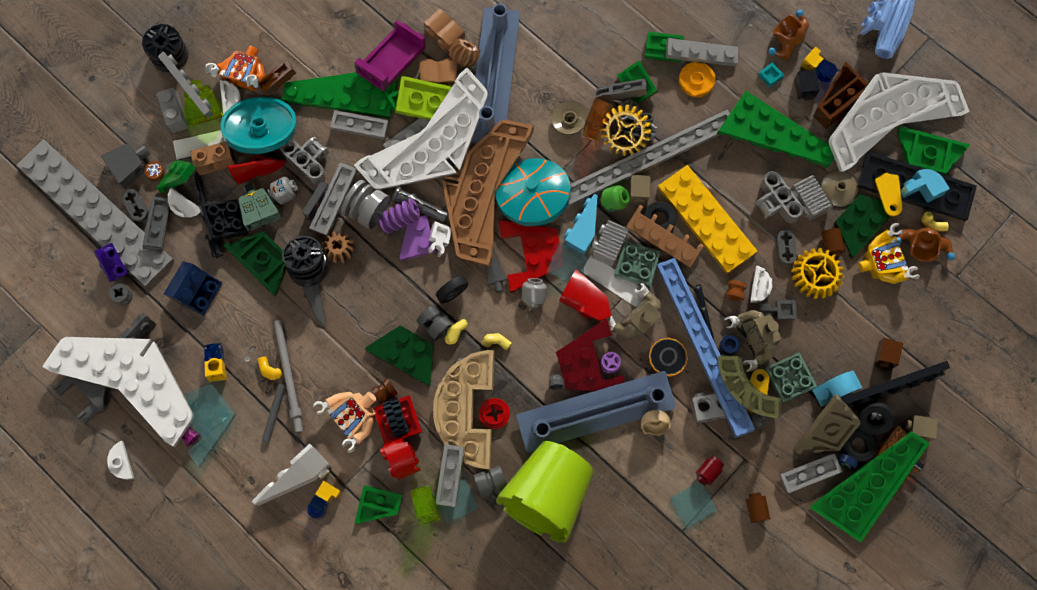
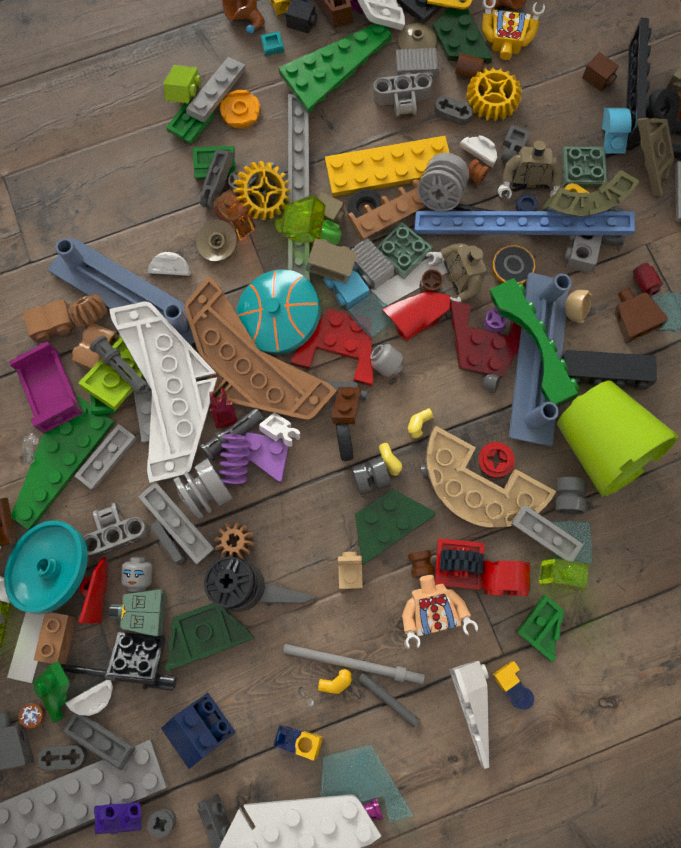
camera: 60 degrees left, 0 degrees up
(340, 67) = (28, 448): none -> clear arm
(354, 342) = (350, 571): none -> tan bracket
(432, 89) = (111, 356): none -> dark grey pin
(433, 189) = (222, 411): none -> dark red plate
(479, 277) = (346, 405): none -> reddish brown plate
(533, 93) = (169, 264): none -> white plate
(573, 426) = (512, 304): none -> green arch
(589, 209) = (331, 261): none -> dark tan brick
(613, 470) = (620, 368): none -> black brick
(615, 172) = (302, 219): none -> clear neon green torso
(618, 294) = (433, 279): none -> reddish brown wheel
(671, 474) = (638, 315): none -> reddish brown torso
(689, 24) = (181, 84): none -> lime brick
(706, 266) = (443, 182): none -> light grey wheel

